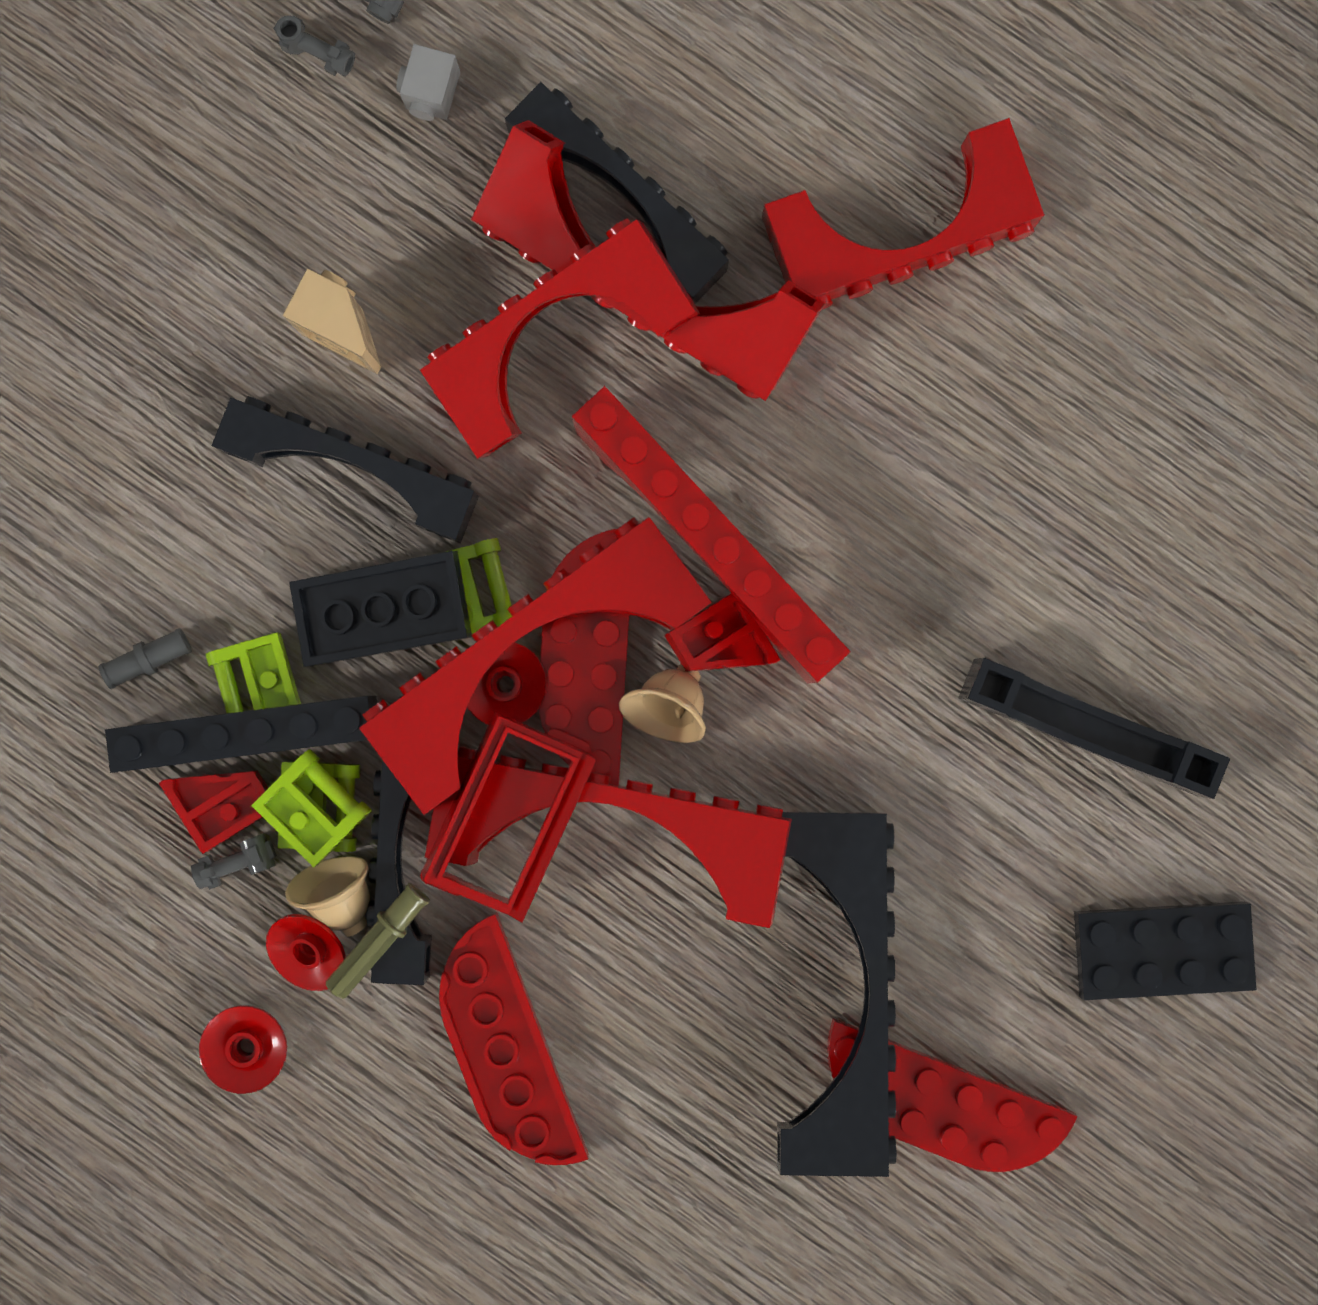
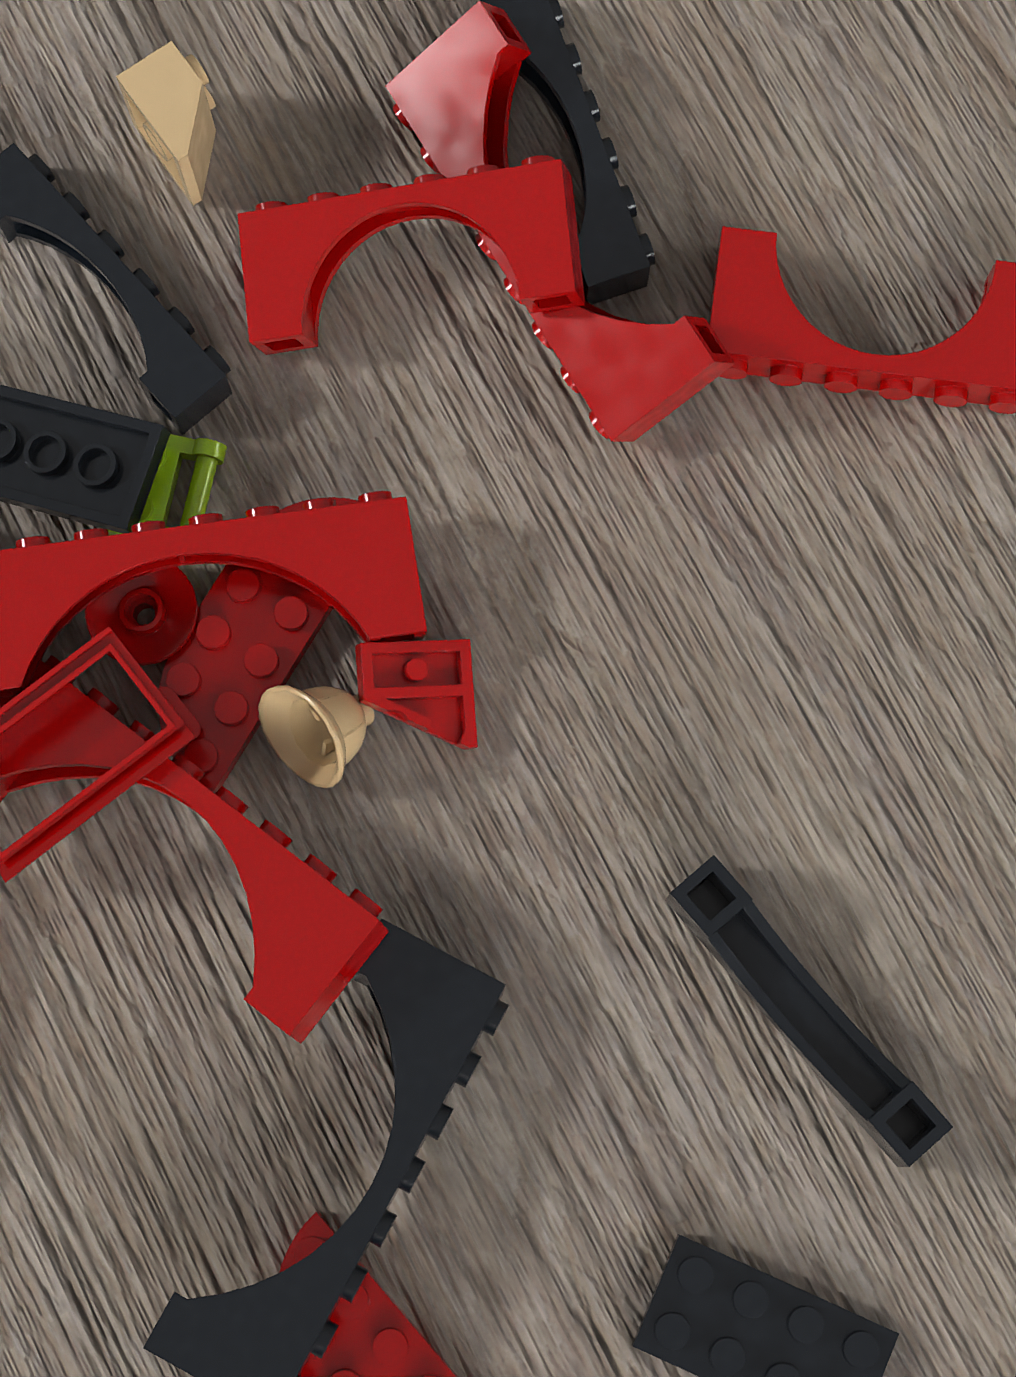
camera: 30 degrees right, 10 degrees down
(756, 585) = (465, 557): red arch -> none

